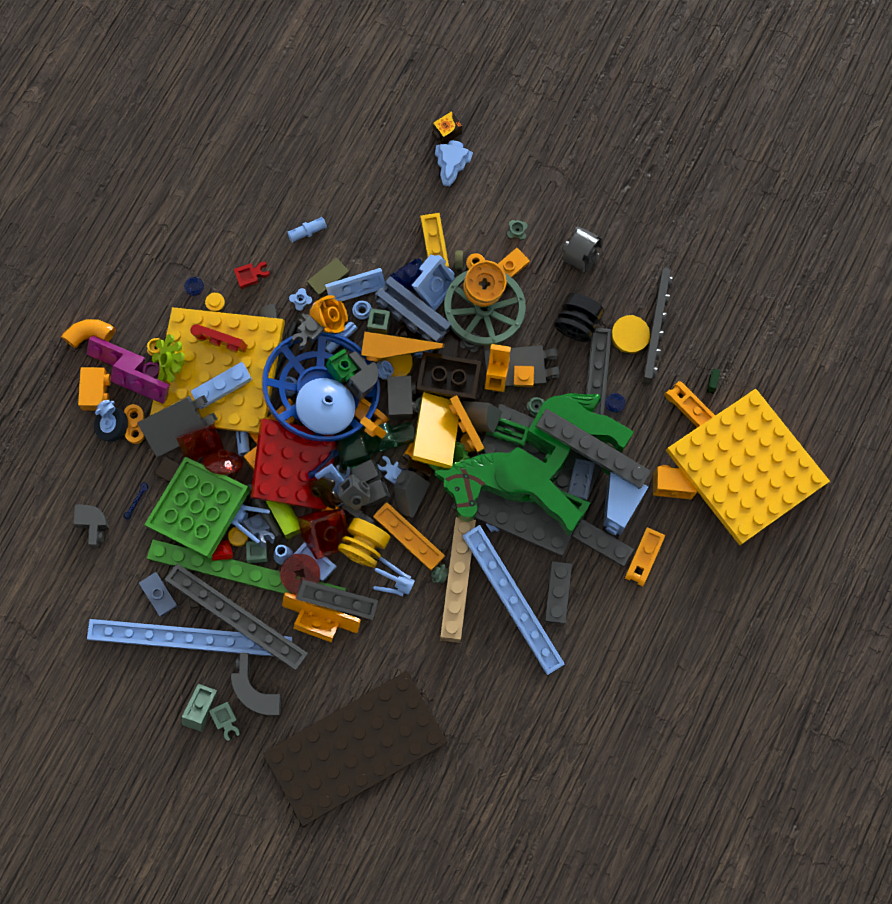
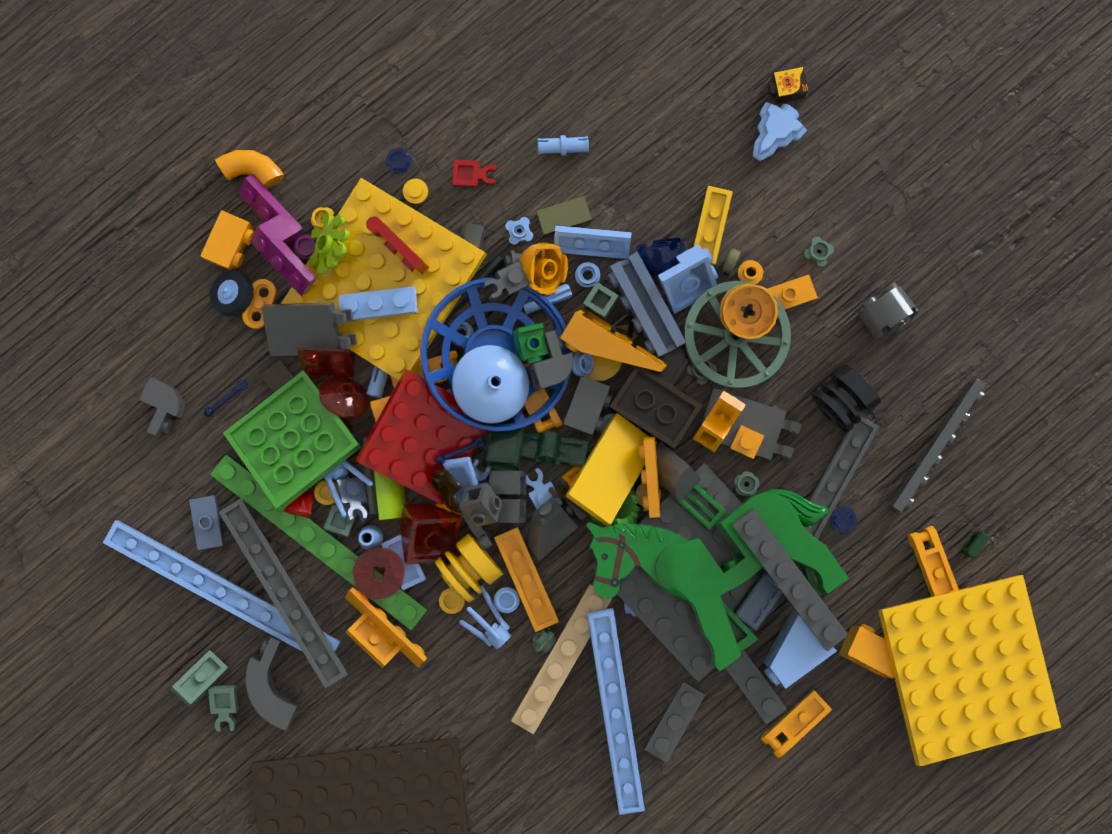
camera: 30 degrees right, 10 degrees up
(105, 408) = (229, 275): light blue plate -> none
(336, 599) = (408, 622): dark grey plate -> none
(361, 574) = (450, 601): none -> yellow plate
(372, 428) = (536, 434): light orange plate -> none
(400, 557) = (506, 600): none -> light blue plate
(630, 334) = (900, 442): yellow tile -> none

